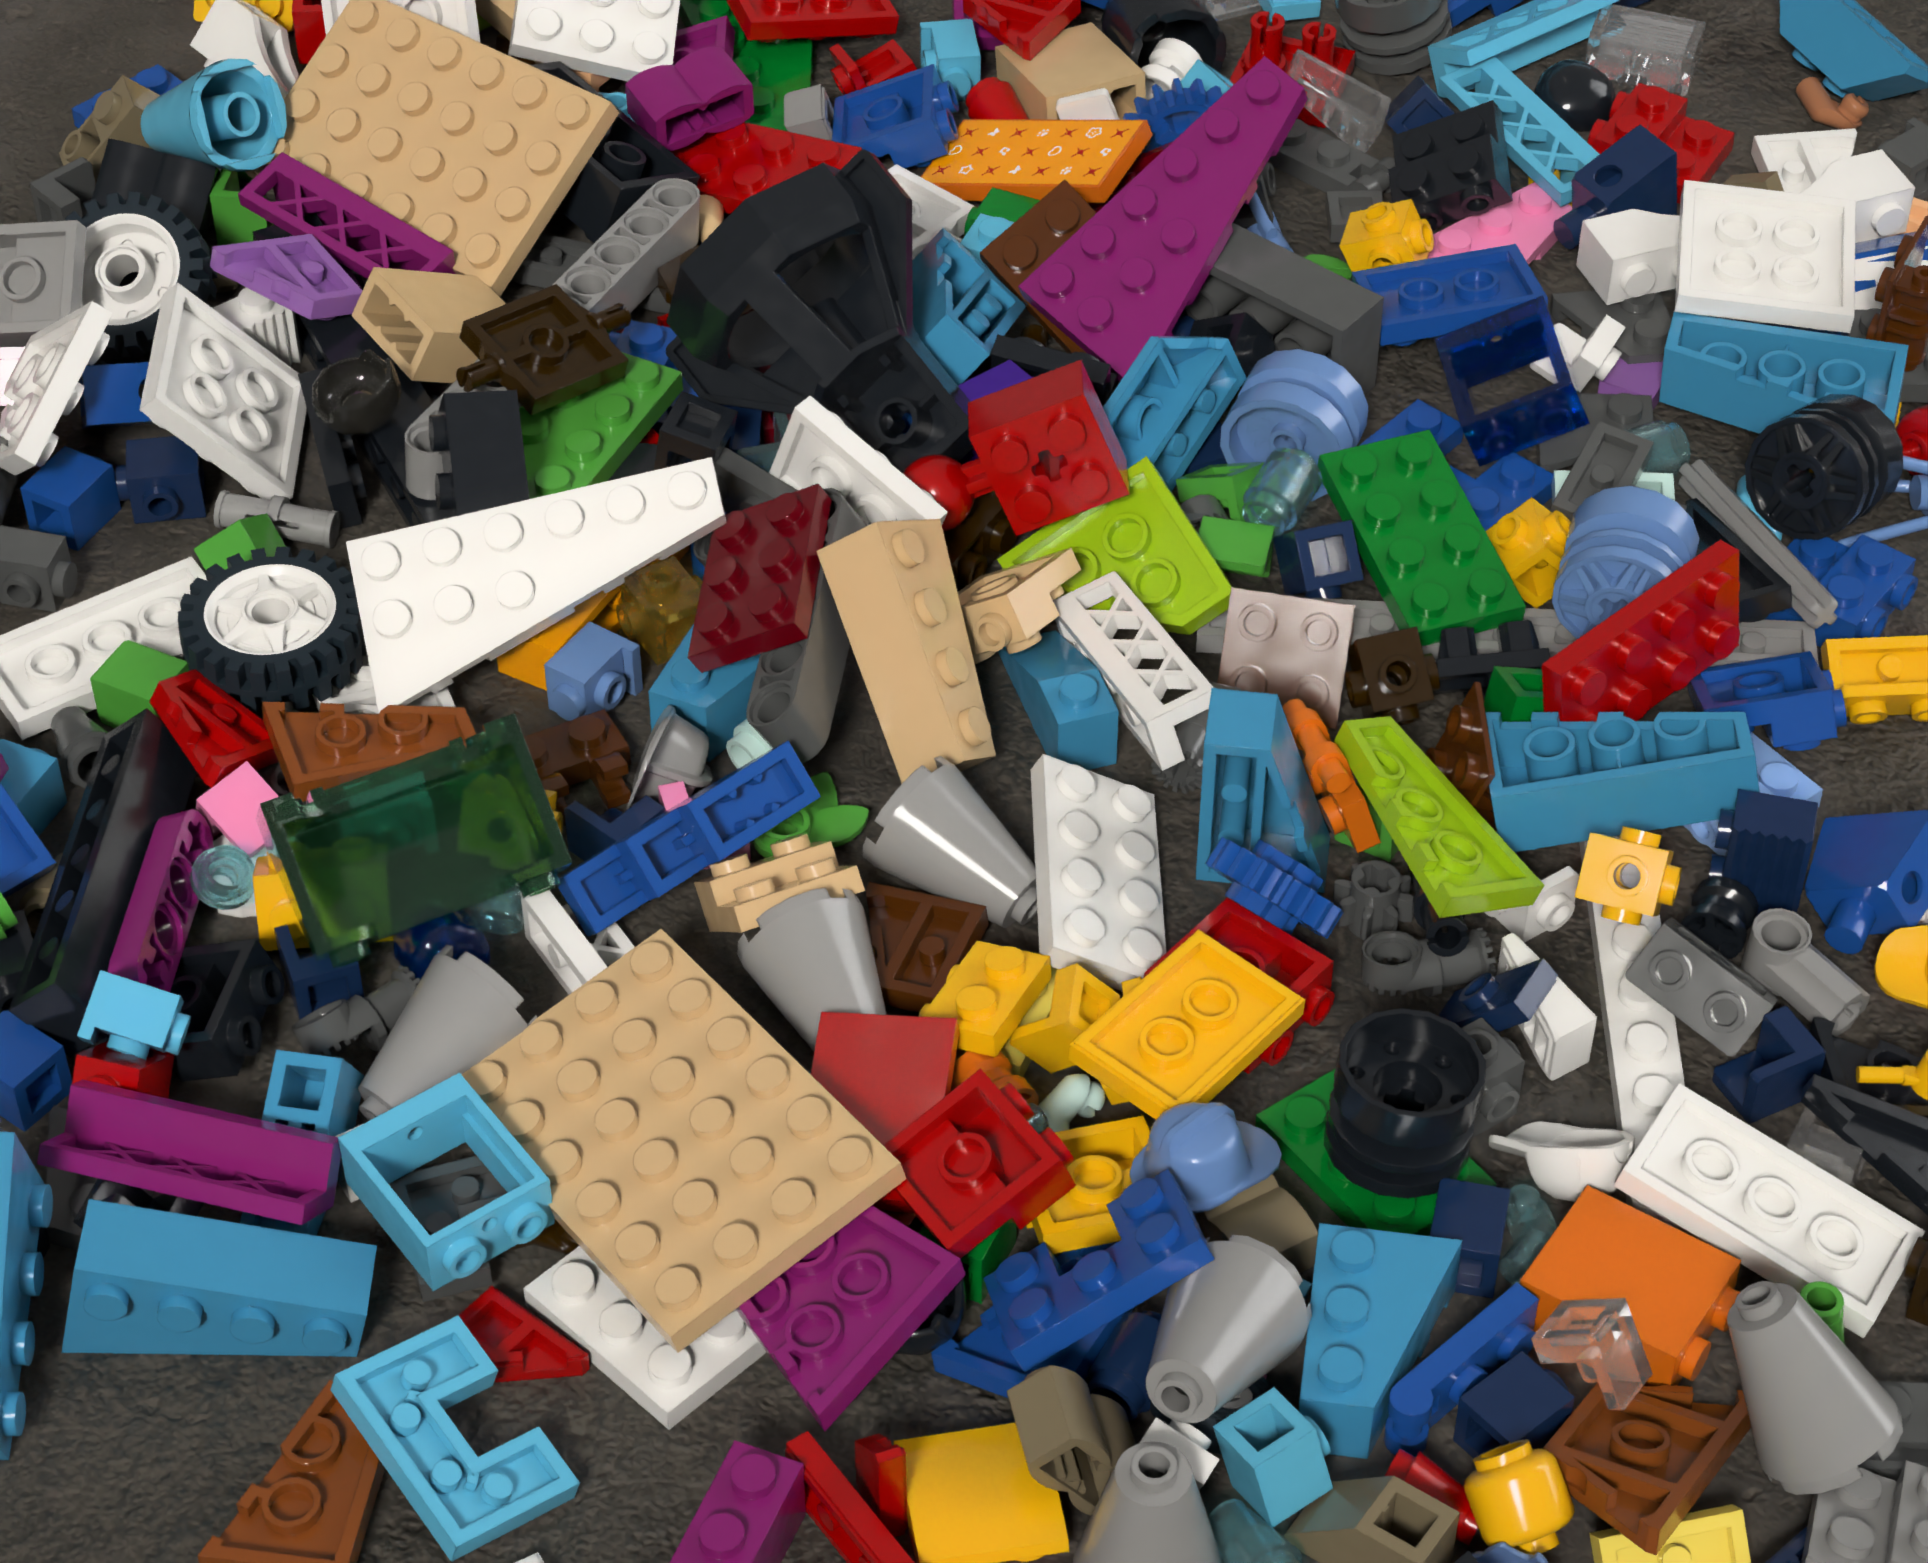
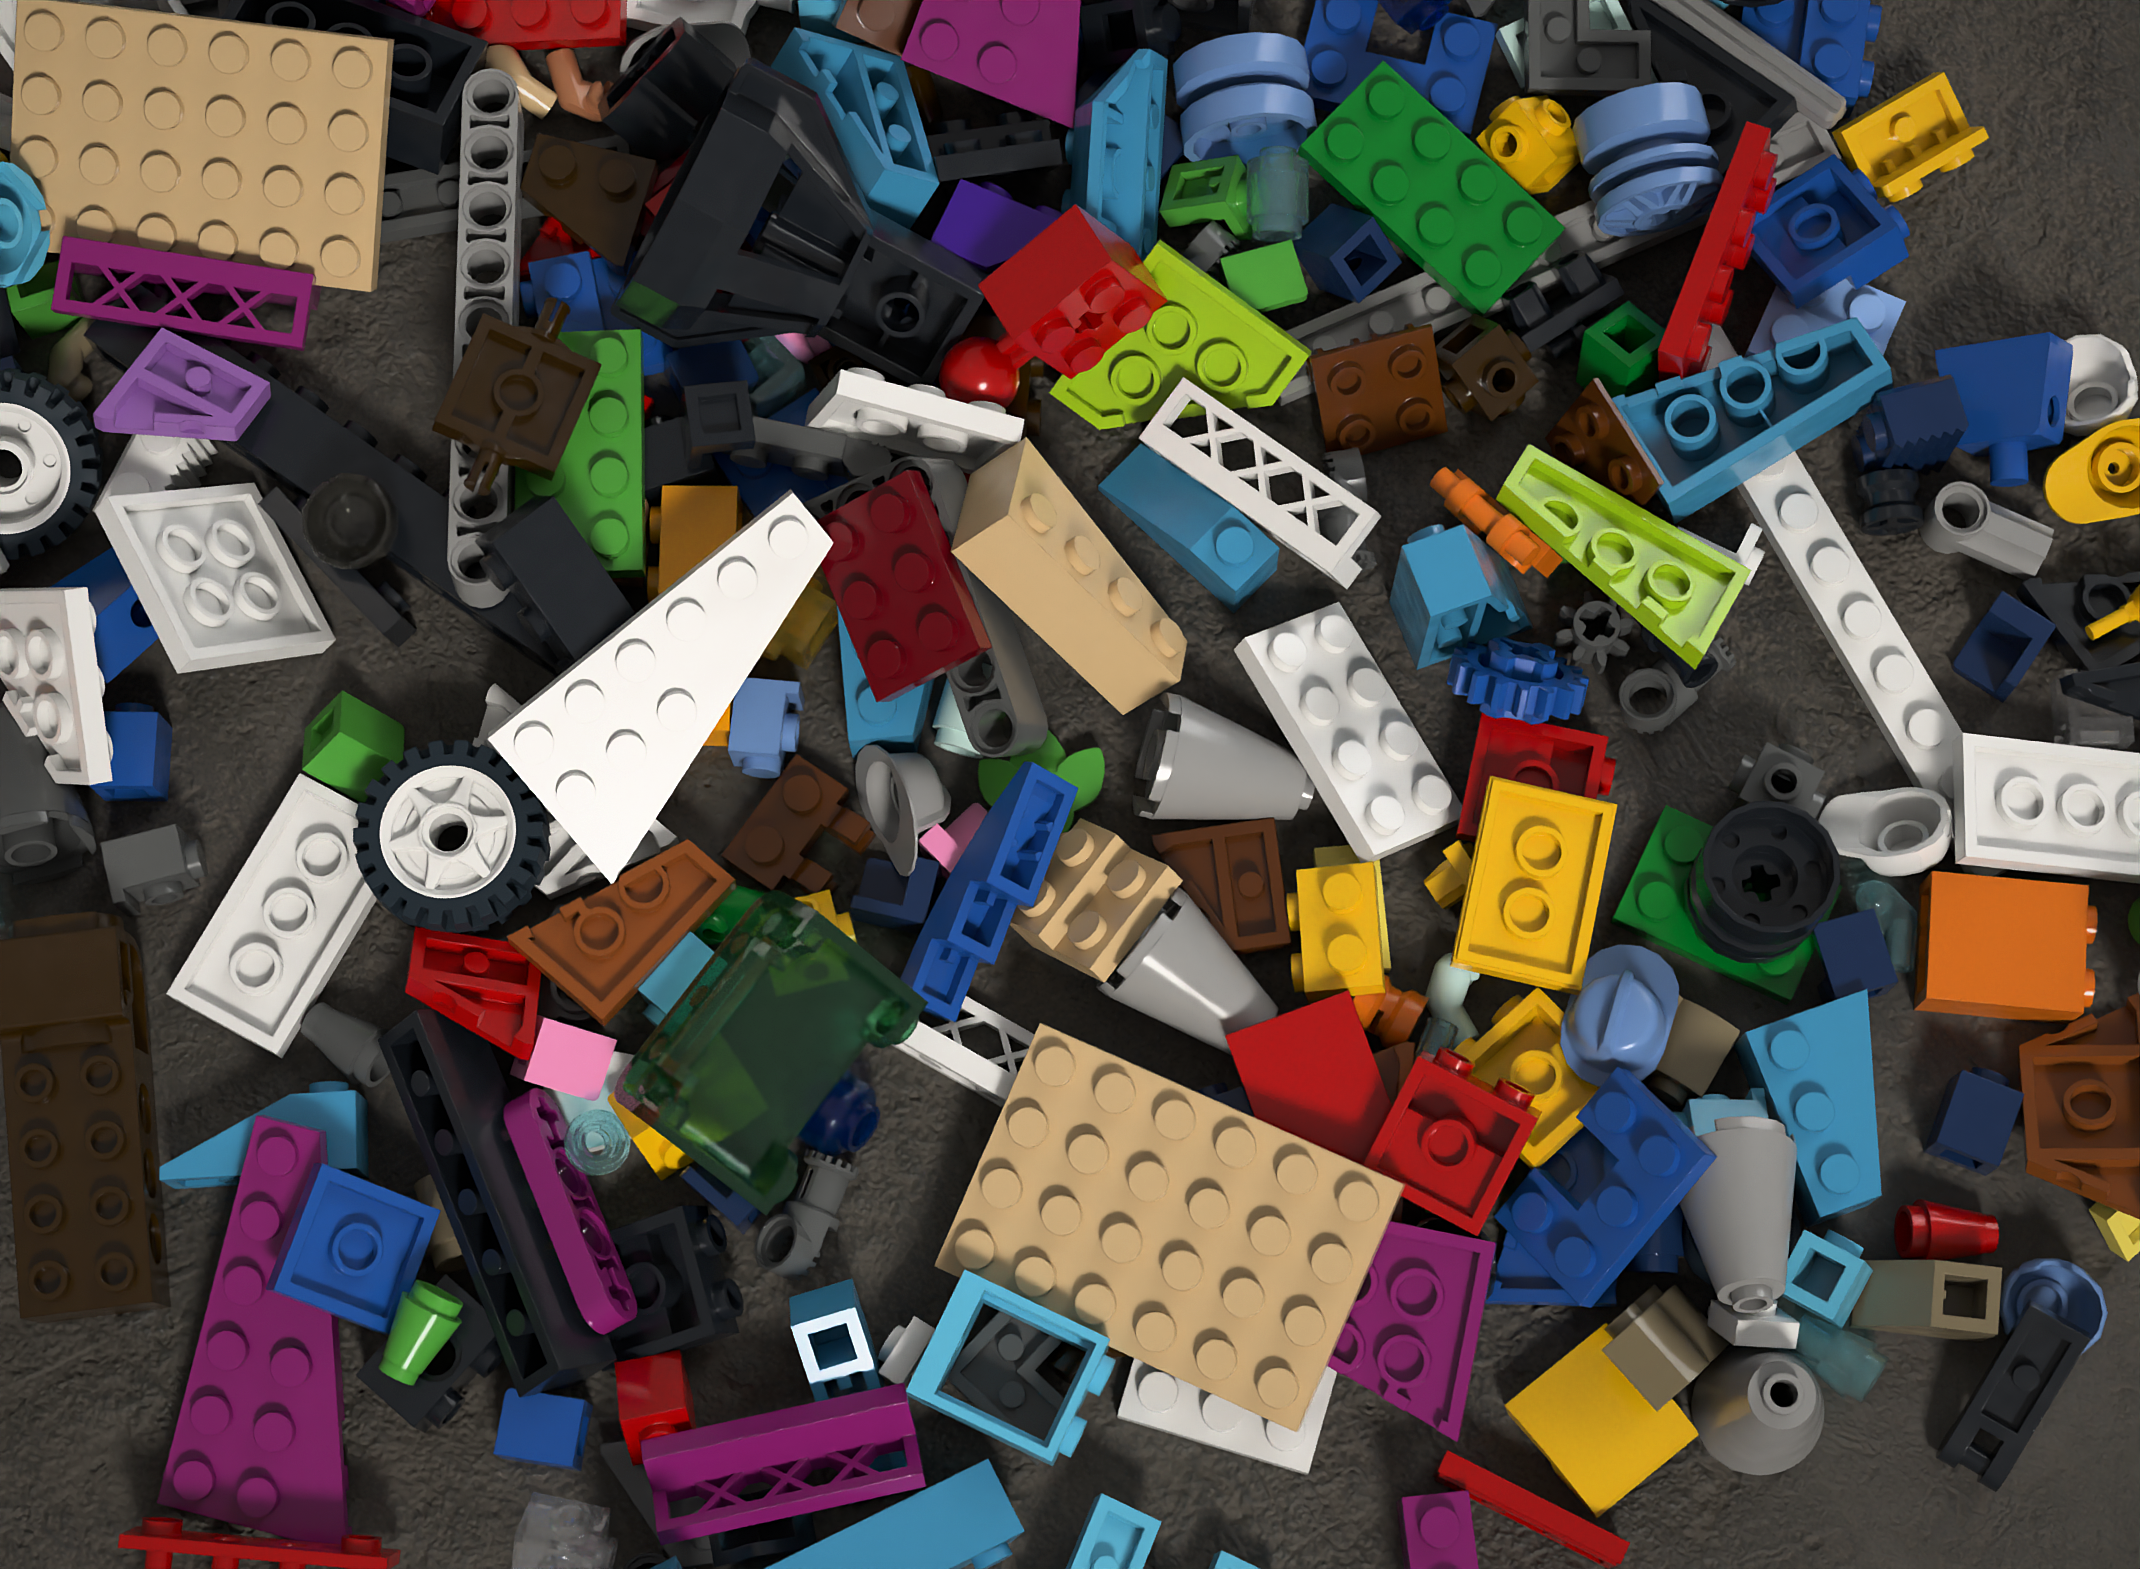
camera: 25 degrees left, 30 degrees up
(129, 680) = (364, 954): bright green panel -> none
(134, 1017) = (644, 1358): medium azure brick -> none
(162, 480) = (203, 699): dark blue brick -> none
(290, 520) = (351, 674): light grey pin -> none
(421, 318) = (364, 374): tan brick -> none
(446, 1028) = (903, 1217): light grey cone -> none
(520, 1342) = (1132, 1465): red tile -> none
(883, 1480) = (1523, 1455): red tile -> none
(1014, 603) = (1106, 455): tan plate -> none
(1075, 1005) = (1422, 910): yellow panel -> none
(1457, 1367) = (1909, 1101): blue plate -> none
(1502, 999) = (1759, 712): dark blue plate -> none
(1519, 1497) = (2027, 1213): yellow head -> none
(1561, 1026) = (1797, 683): white slope -> none
(1601, 1342) = (2015, 1034): clear panel -> none
(1603, 868) = (1813, 521): yellow brick -> none
(1701, 987) = (1919, 592): dark grey bracket -> none

